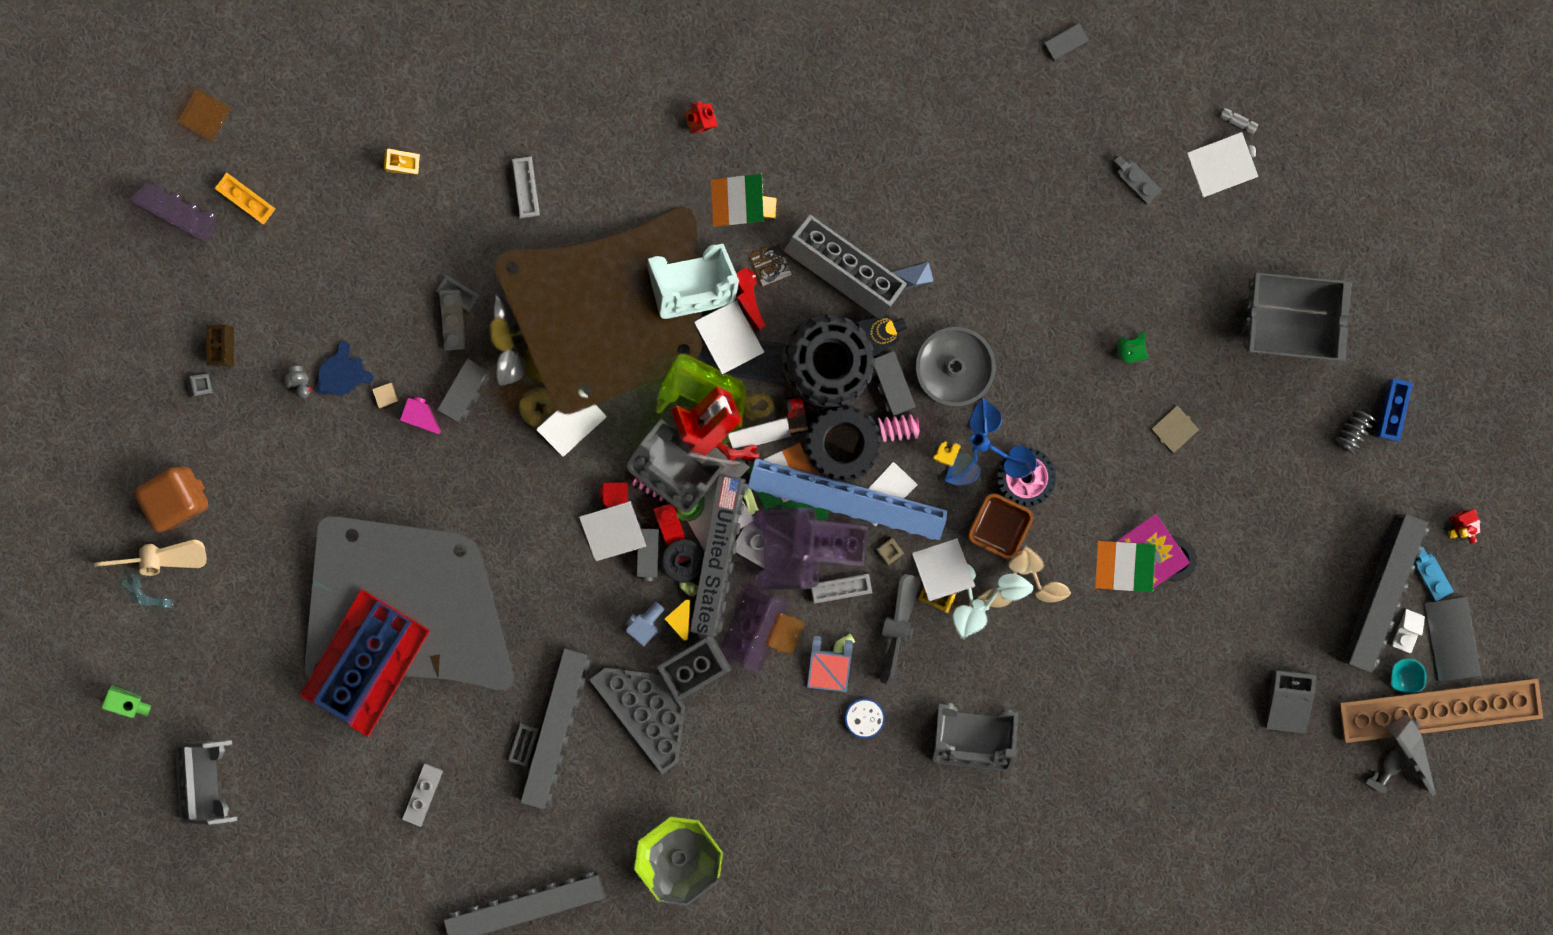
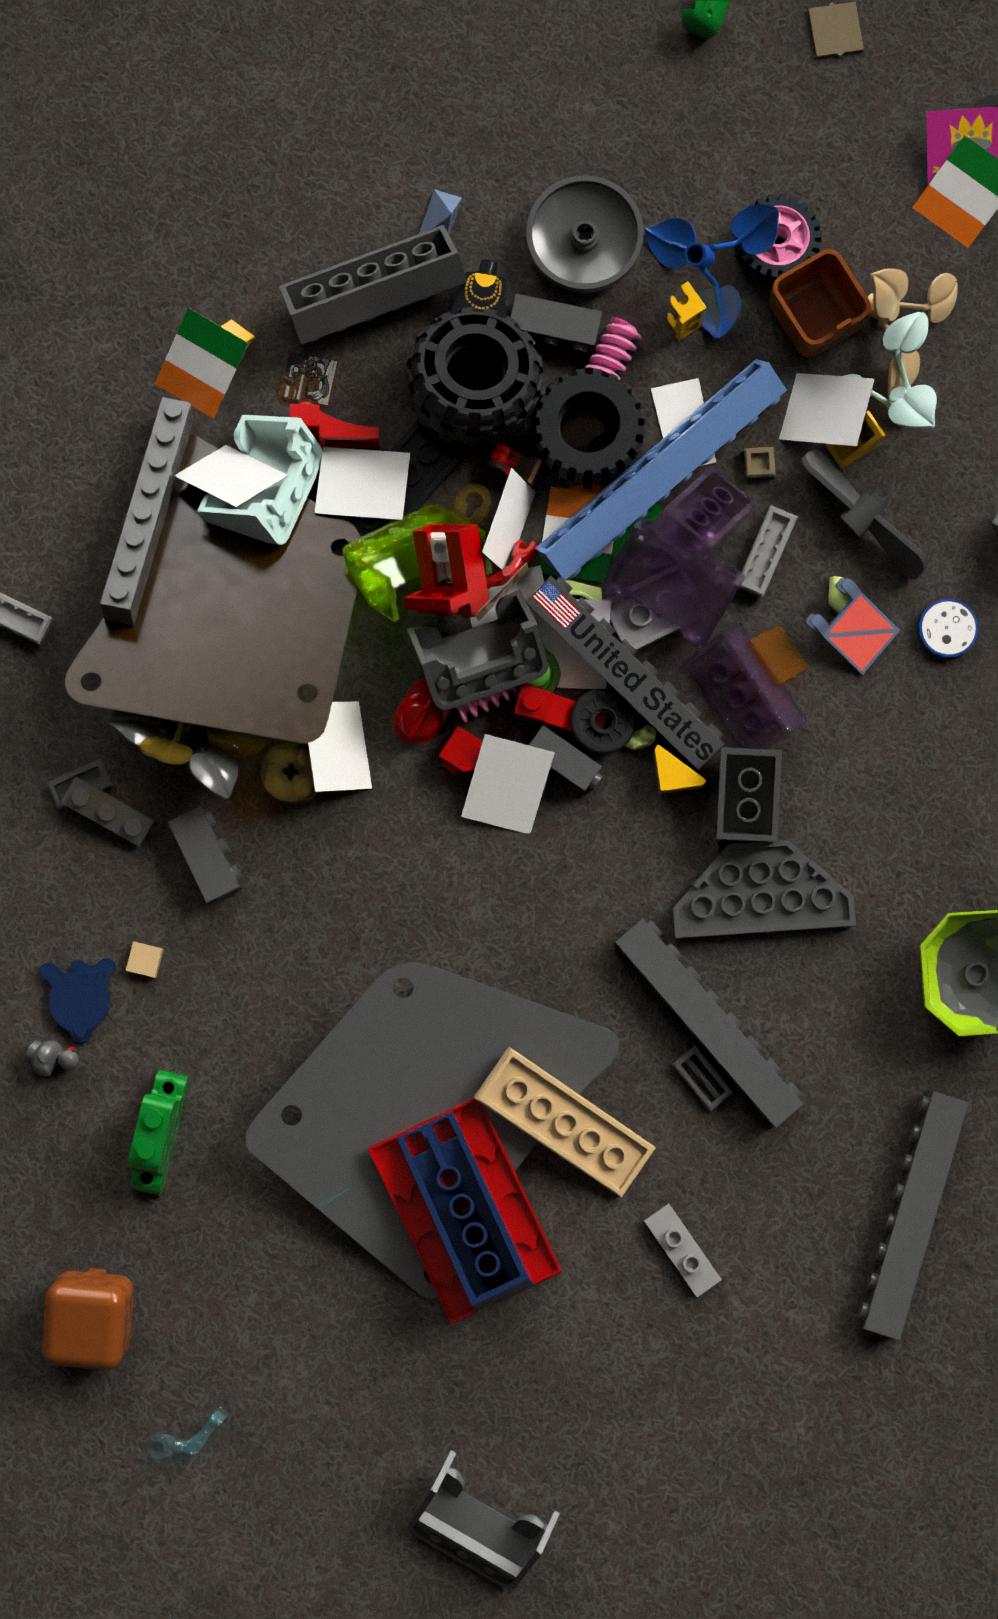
camera: 50 degrees left, 5 degrees down
(116, 701) = (299, 1570): bright green torso -> none
(186, 554) = (171, 1353): tan piece -> none
(296, 467) = (157, 1132): none -> green brick
(420, 415) = (198, 931): dark pink slope -> none
(447, 686) = (564, 1122): none -> tan tile
(617, 454) = (417, 715): none -> red piece
(630, 230) = (147, 512): none -> brick
(642, 625) = (652, 824): sand blue brick -> none
(682, 262) = (231, 475): none -> white sticker
(700, 117) = (70, 342): red brick -> none

